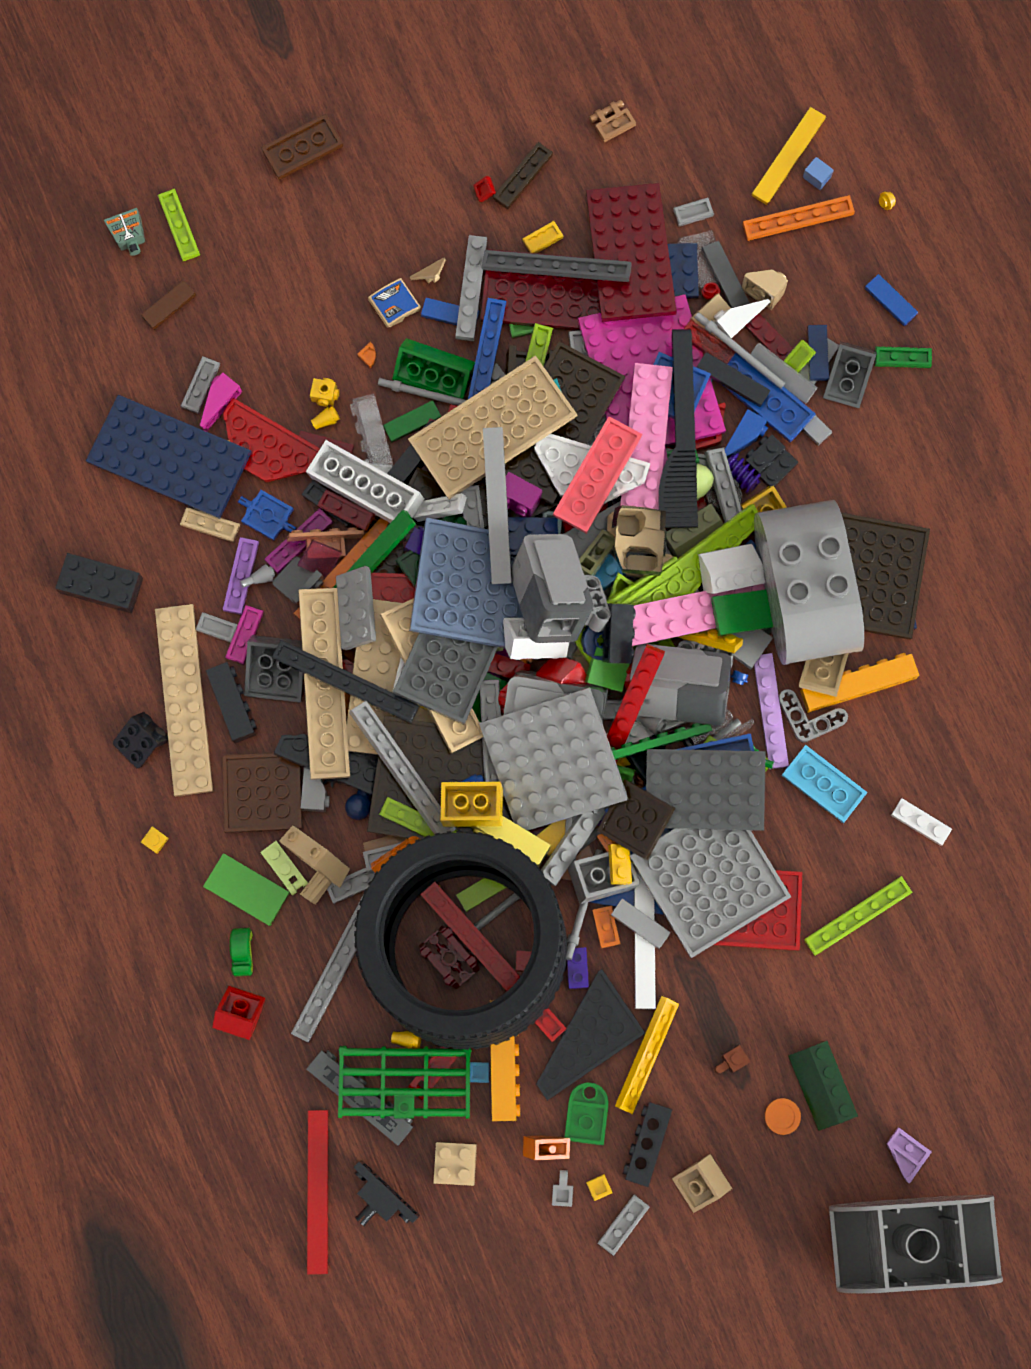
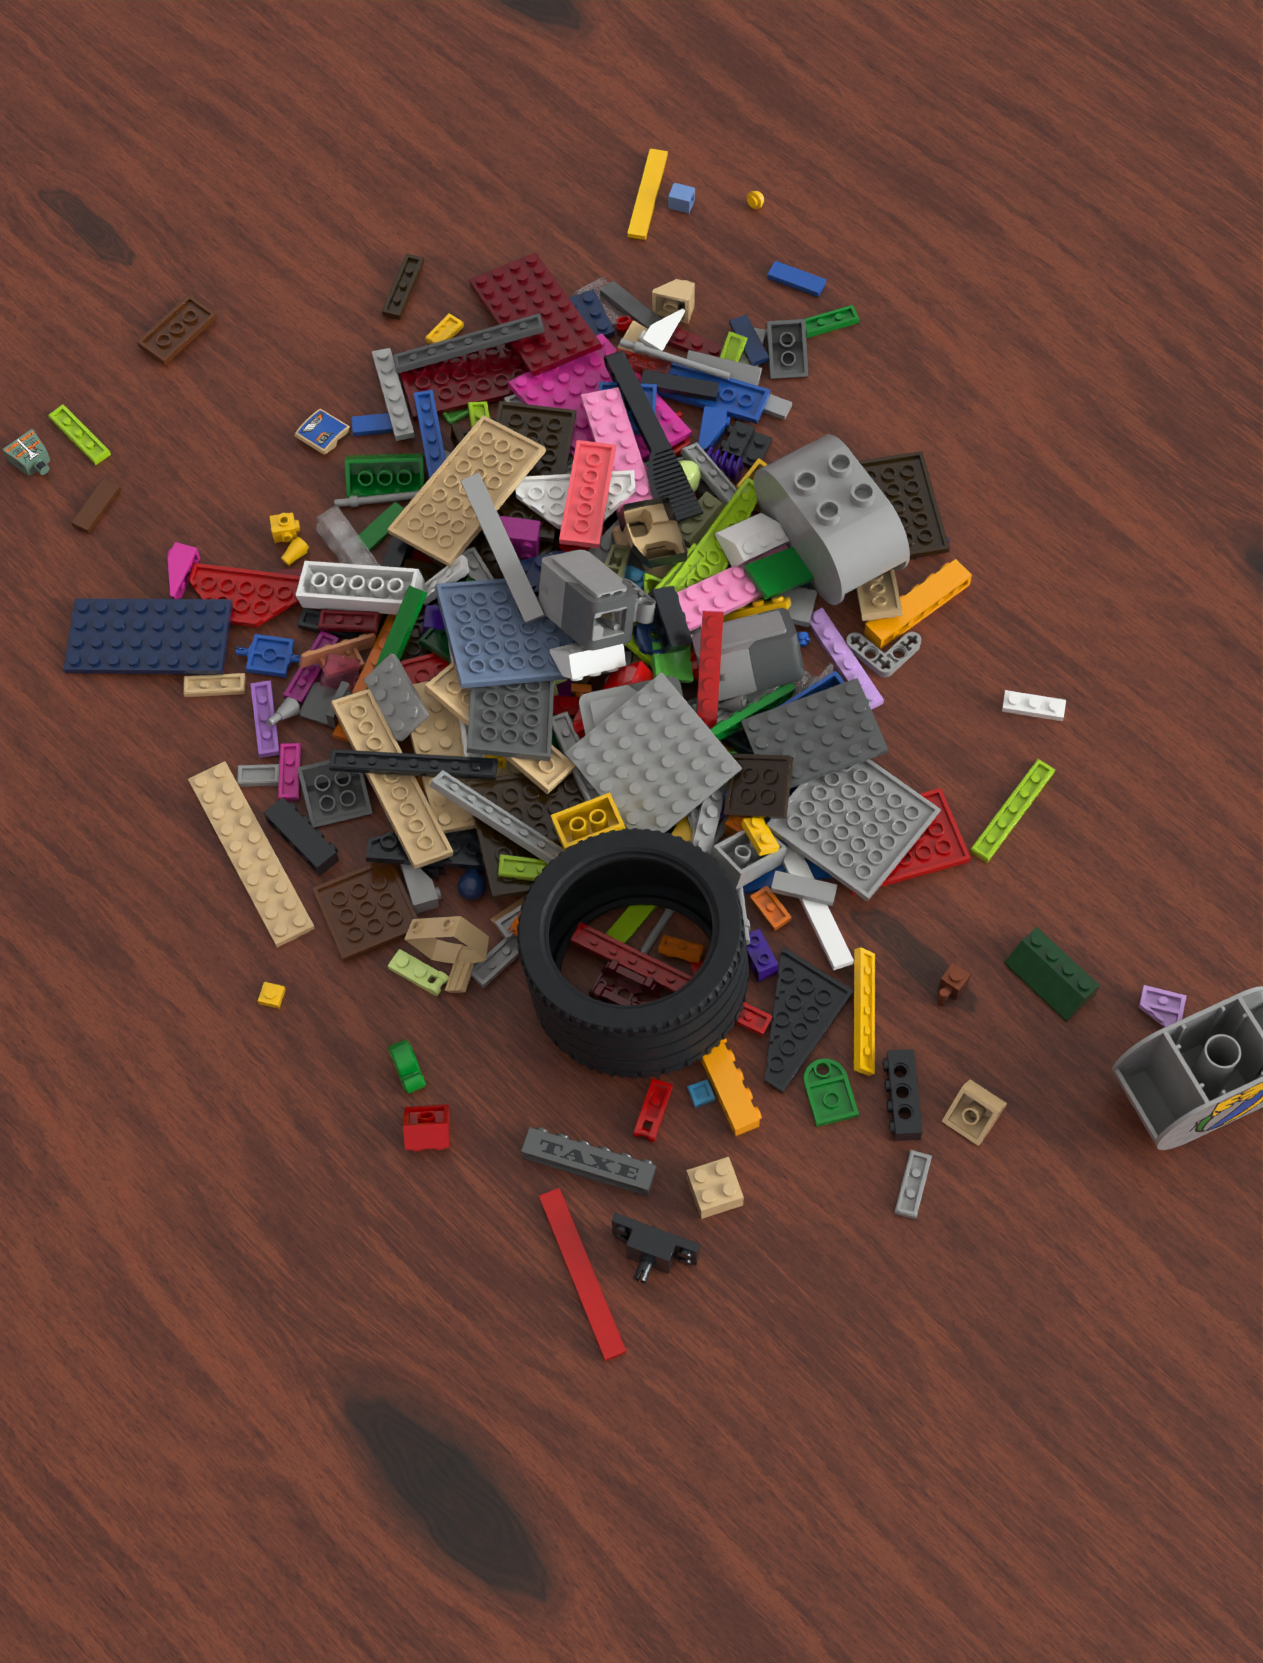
camera: 25 degrees left, 15 degrees down
(99, 583) = (120, 773): black brick -> none
(139, 739) = (218, 904): black bracket -> none
(200, 385) = (155, 566): light grey tile -> none
(246, 889) = (387, 1007): bright green tile -> none
(327, 983) = (510, 1052): light grey tile -> none
(368, 355) = (314, 485): orange tile -> none
(404, 1097) = (635, 1139): green door -> none
(406, 1039) = (613, 1088): yellow cone -> none
(431, 272) = (350, 390): tan piece -> none
(484, 188) = (370, 308): red tile -> none
(513, 935) = (681, 949): none -> orange plate
(546, 1147) = (801, 1136): orange slope -> none
(562, 1193) = (837, 1175): light grey plate -> none
(599, 1187) = (872, 1157): yellow tile -> none
(614, 125) = (472, 219): medium nougat plate -> none
(693, 212) = (578, 266): light grey tile -> none
(782, 1116) = (1025, 1019): orange piece -> none
(798, 218) = (679, 239): orange plate -> none
(824, 784) = (925, 703): medium azure plate -> none

